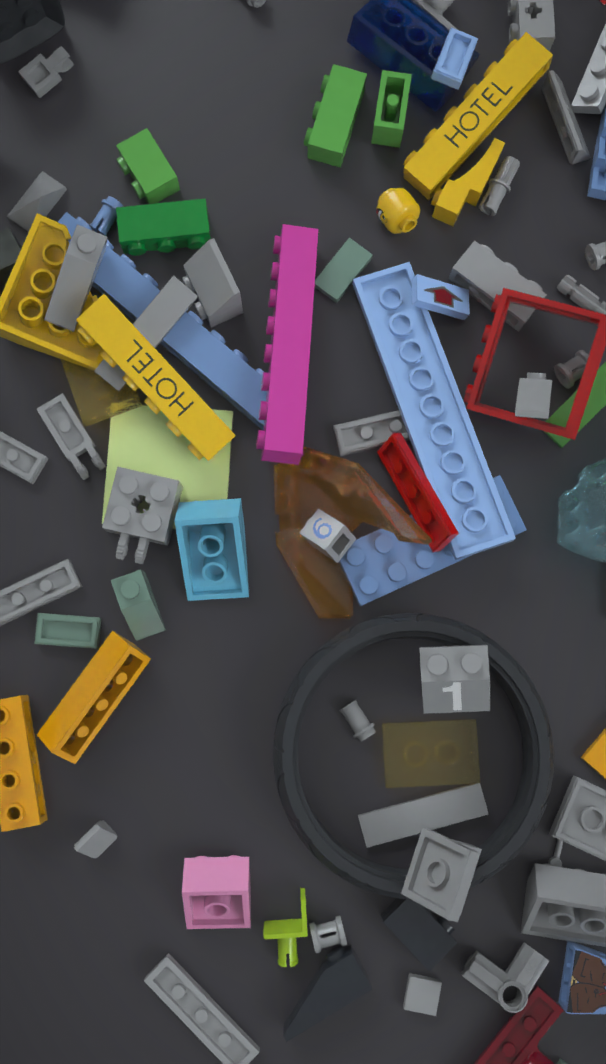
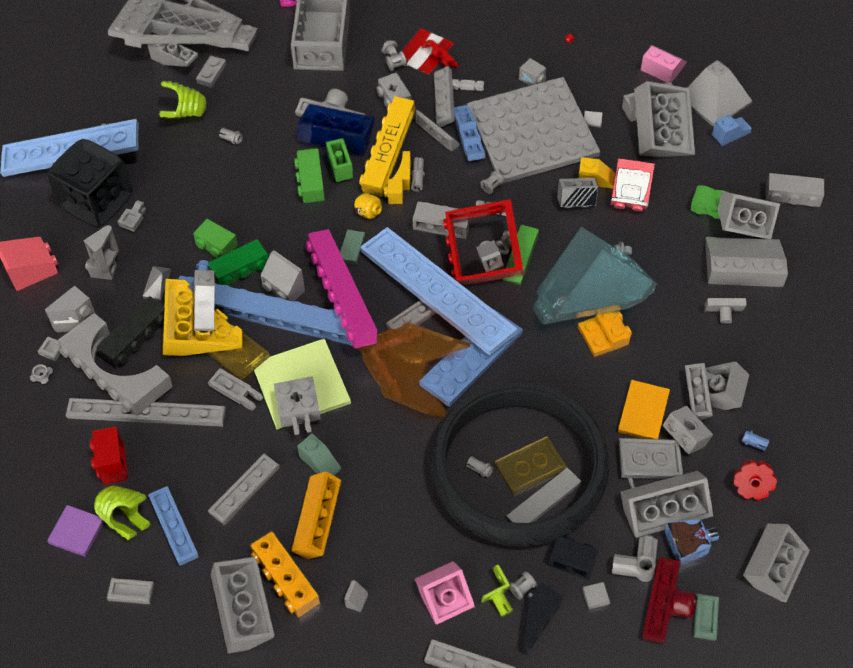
camera: 20 degrees left, 25 degrees down
(68, 630) = (282, 493): sand green tile -> none
(154, 323) = (256, 315): light grey tile -> none
(155, 377) = (274, 332): yellow brick -> none
(212, 549) = (349, 410): medium azure slope -> none
(327, 535) = (412, 373): light grey brick -> none
(417, 492) = (448, 327): red tile -> none
(440, 297) = (413, 236): light blue tile -> none
(441, 874) = (565, 497): light grey bracket -> none
(454, 58) = (362, 122): light blue tile -> none
(455, 678) = (519, 402): light grey slope -> none

